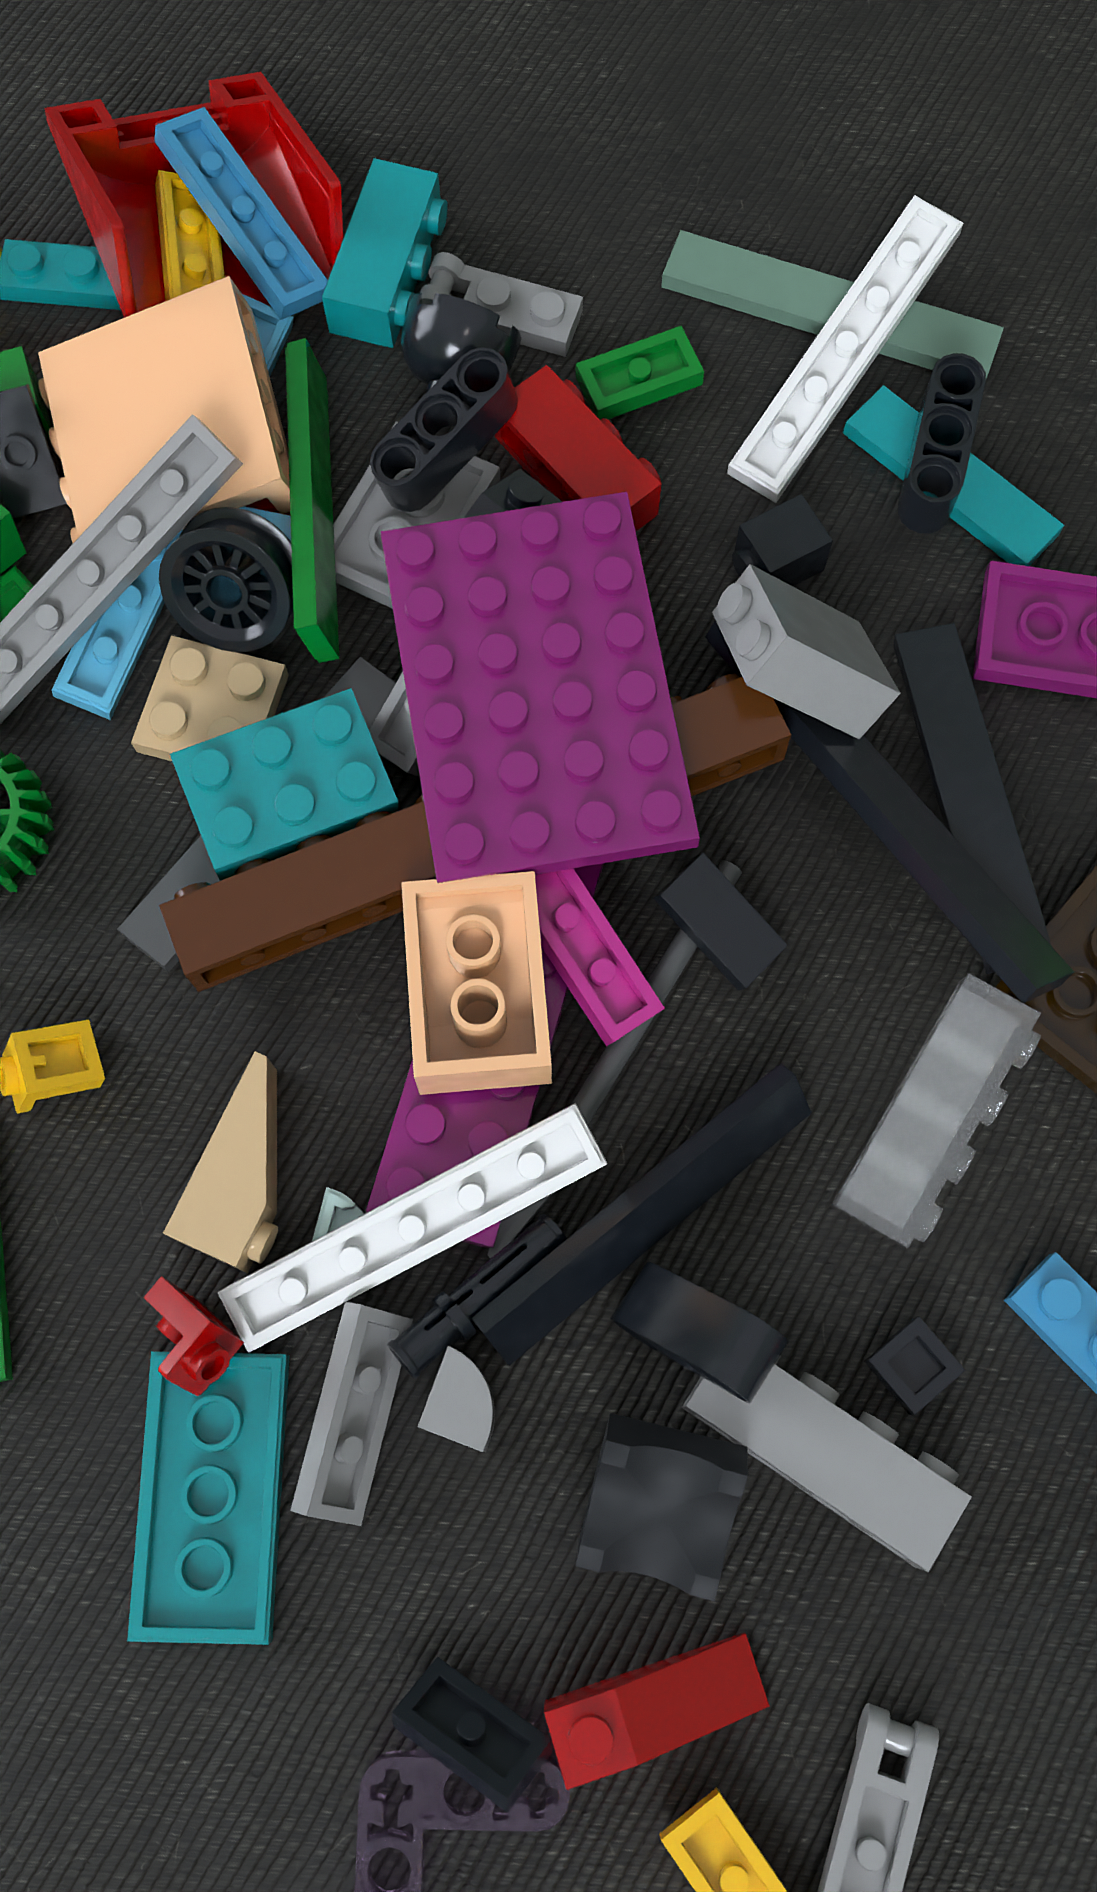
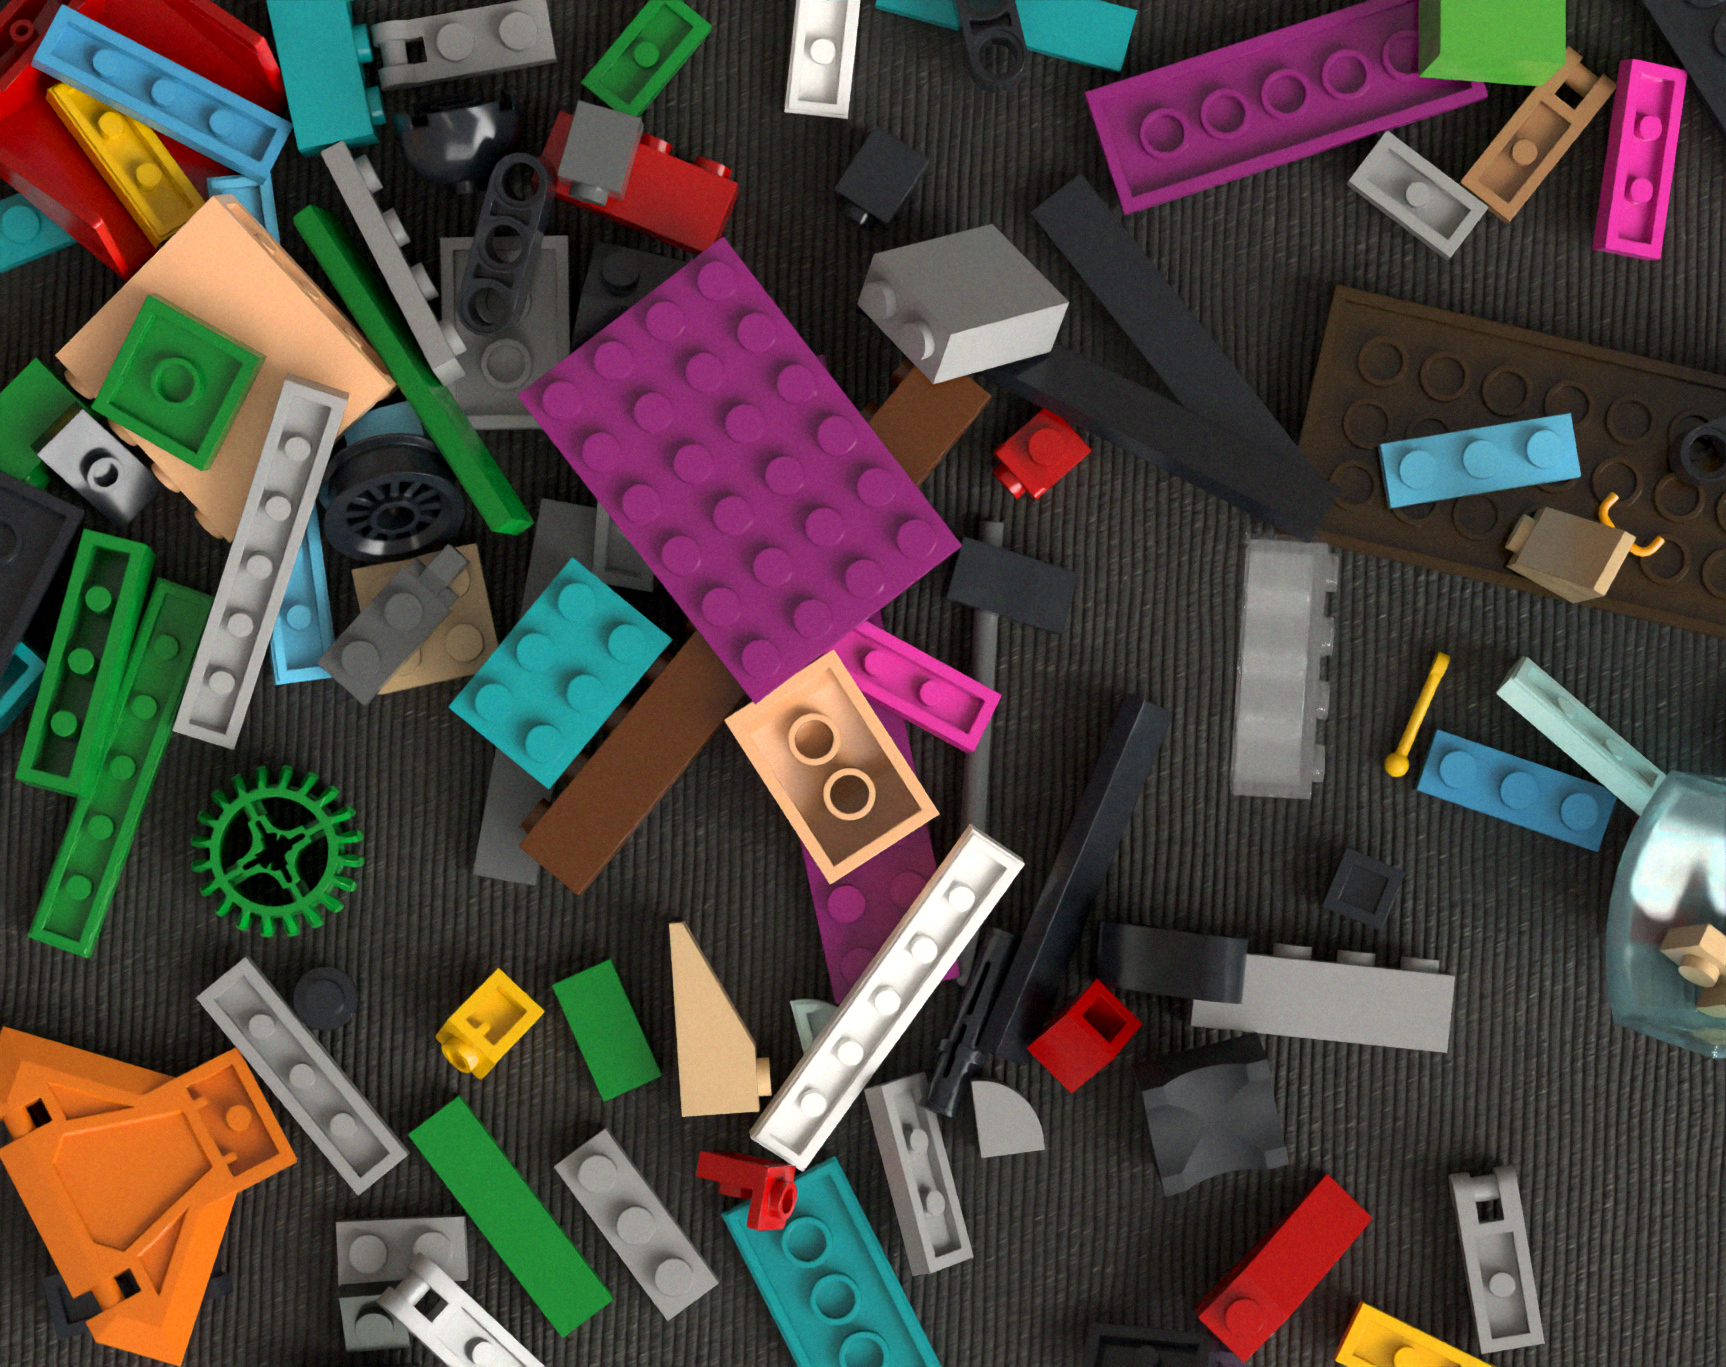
camera: 30 degrees left, 15 degrees up
(72, 1321) = (637, 1224): none -> light grey plate
(113, 399) = (178, 382): none -> green plate
(151, 1128) = (607, 1030): none -> green tile
(176, 685) = (394, 625): none -> dark grey hinge
(347, 431) = (409, 284): none -> light grey plate
(561, 394) = (599, 153): none -> dark grey brick
(578, 1362) = (1084, 1036): none -> red brick
(802, 831) = (1038, 455): none -> red bracket
(1000, 1265) = (1397, 763): none -> yellow hinge

